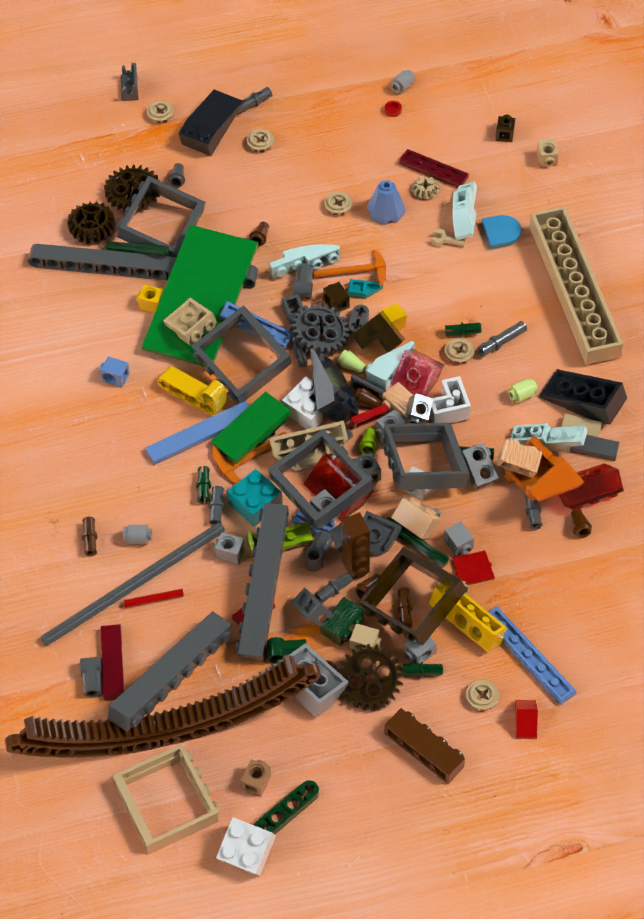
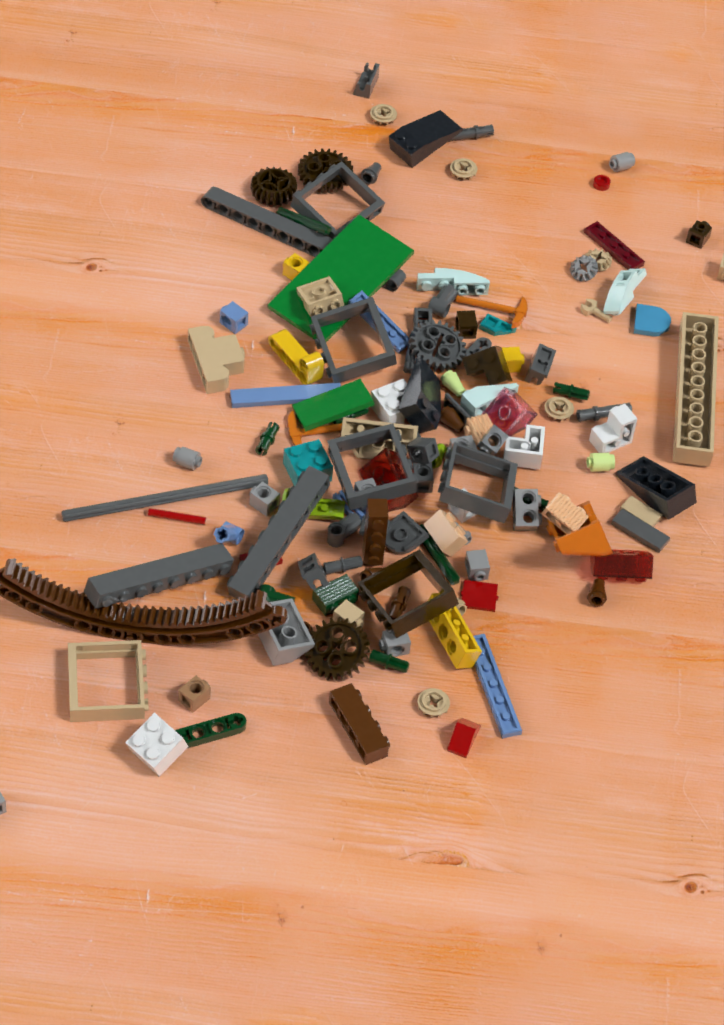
camera: 15 degrees right, 5 degrees down
(89, 536) = (144, 445): reddish brown pin -> none
(91, 672) = (91, 555): dark grey piece -> none
(112, 661) = (117, 548): dark red tile -> none
(116, 419) = (215, 357): none -> tan brick
(213, 598) = (229, 533): none -> medium blue piece
(216, 505) = (270, 459): dark grey pin -> none
(259, 234) = (423, 247): reddish brown cone -> none
(338, 197) = (512, 241): tan gear -> none
(359, 443) = (423, 450): none -> dark grey brick
(368, 416) = (445, 433): red tile -> none
(386, 203) = (553, 260): medium blue cone -> none
(417, 208) = (581, 275): none -> light grey gear
(422, 312) = (540, 364): none -> dark grey hinge
(523, 354) = (616, 431): none -> white brick
(533, 511) = (558, 568): dark grey pin -> none
(553, 438) = (605, 510): light aqua slope -> none

